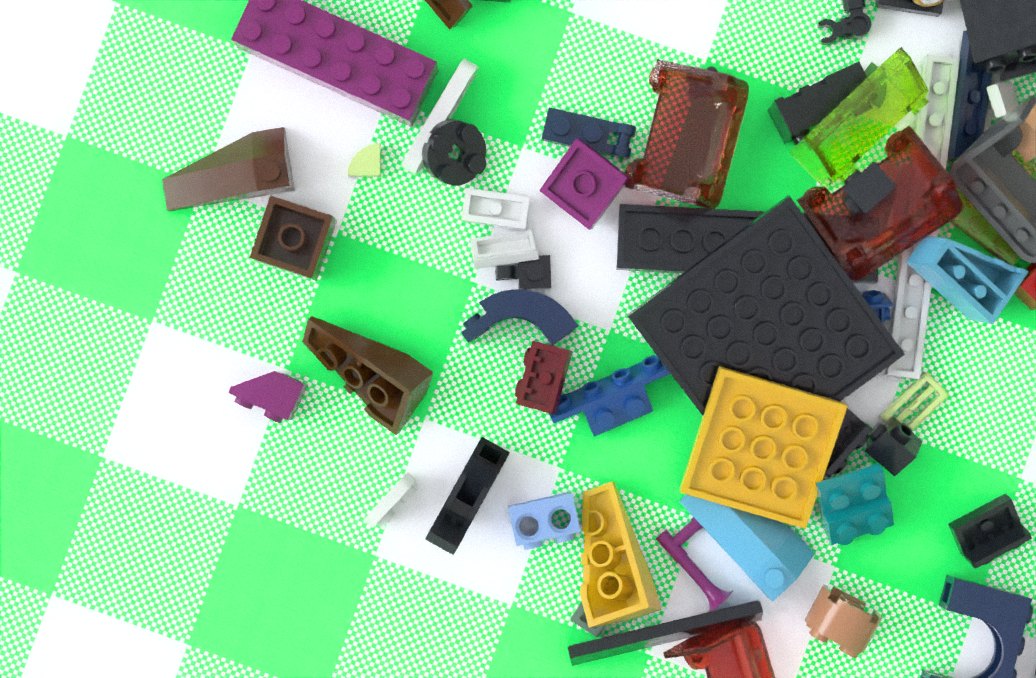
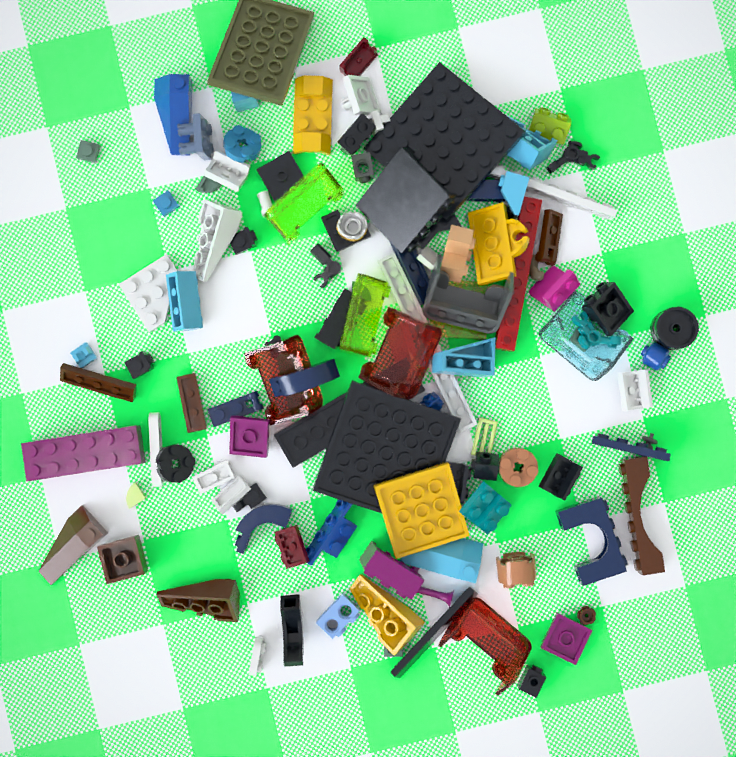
camera: 30 degrees left, 0 degrees up
(272, 392) = (164, 641): magenta slope -> none
(533, 84) = (191, 402): none -> reddish brown plate
(662, 505) = (390, 571): none -> magenta wedge
(718, 150) = (305, 378): none -> dark blue arch
(867, 191) = (389, 353): black brick -> none
(955, 482) = (528, 468): none -> nougat brick

